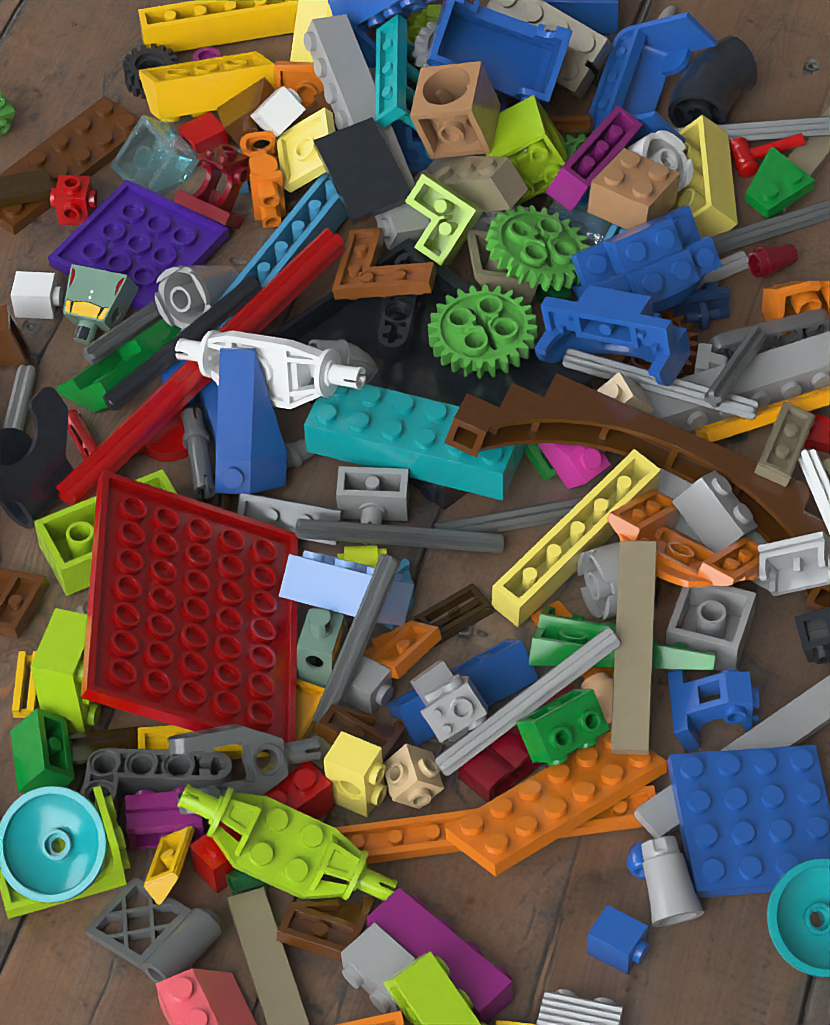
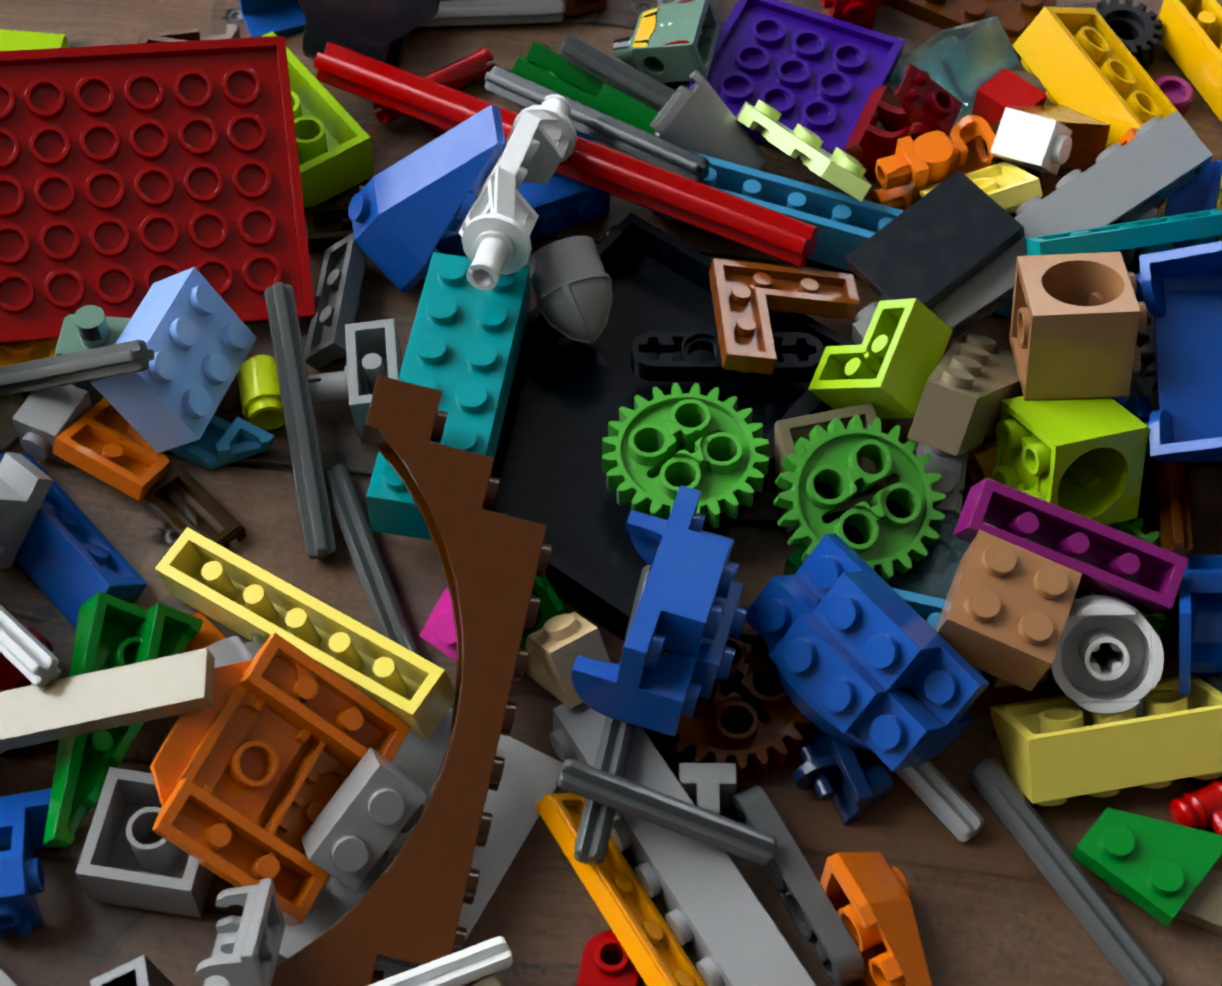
camera: 75 degrees right, 5 degrees up
(243, 229) = (836, 168): none -> yellowish green plate
(771, 259) = (978, 871): dark red cone -> none
(784, 444) = (522, 911): dark tan tile -> none

